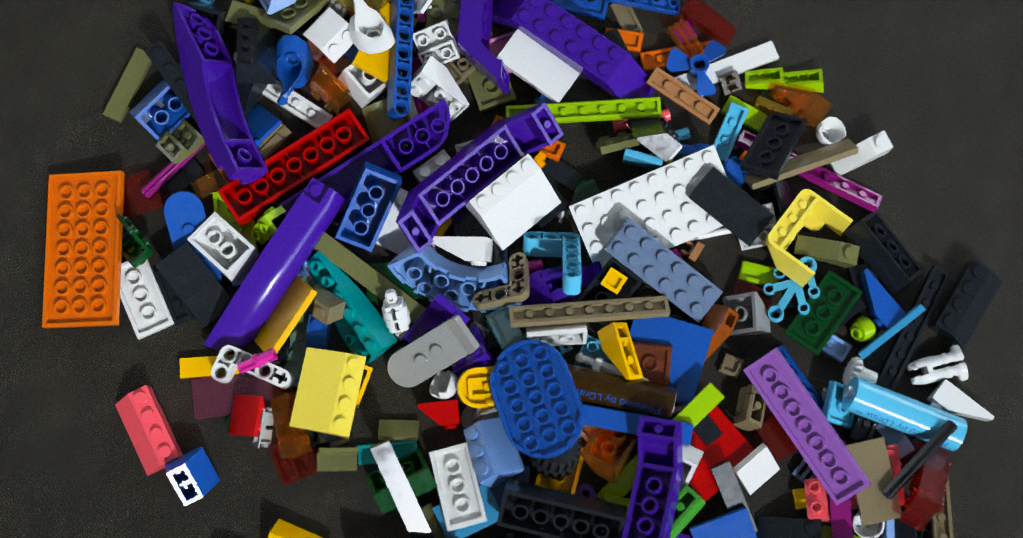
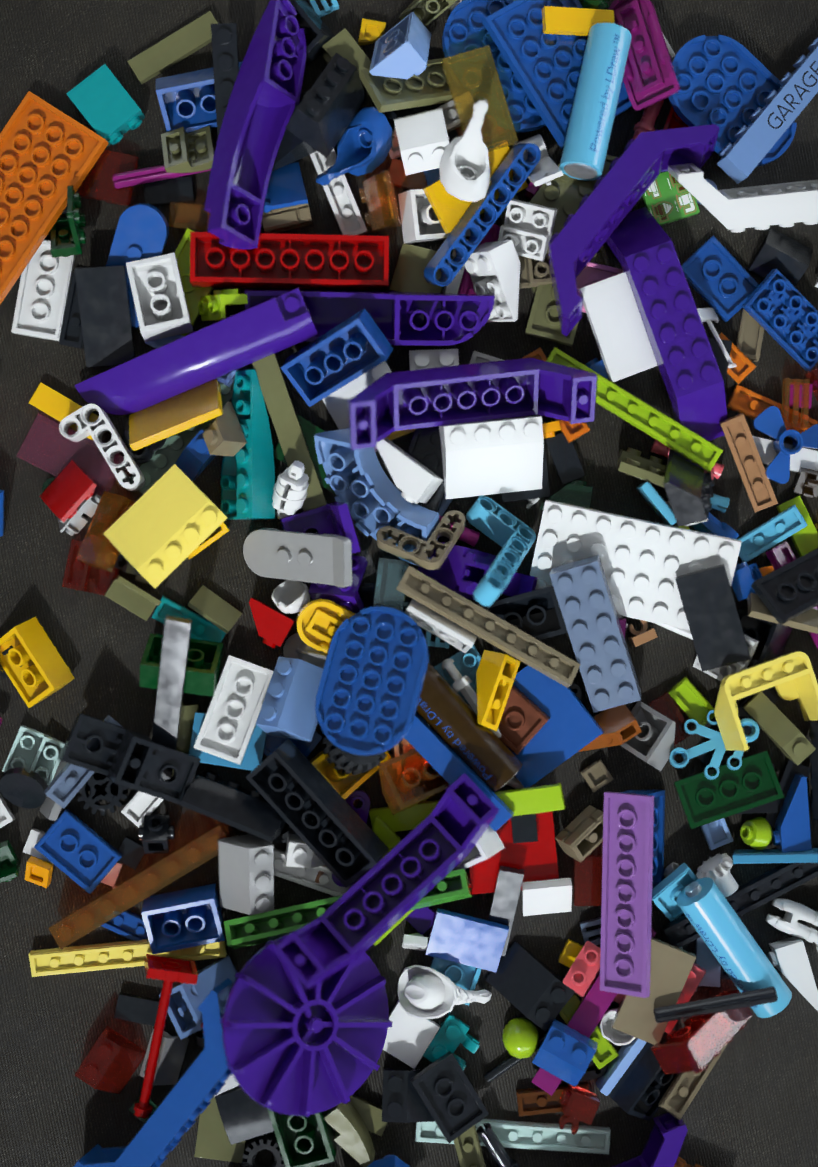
camera: 35 degrees right, 10 degrees up
(107, 149) = (106, 105): none -> teal panel
(257, 360) = (115, 443): dark pink axle -> none
(591, 22) = (709, 315): none -> white piece
(614, 280) = (536, 612): yellow tile -> none

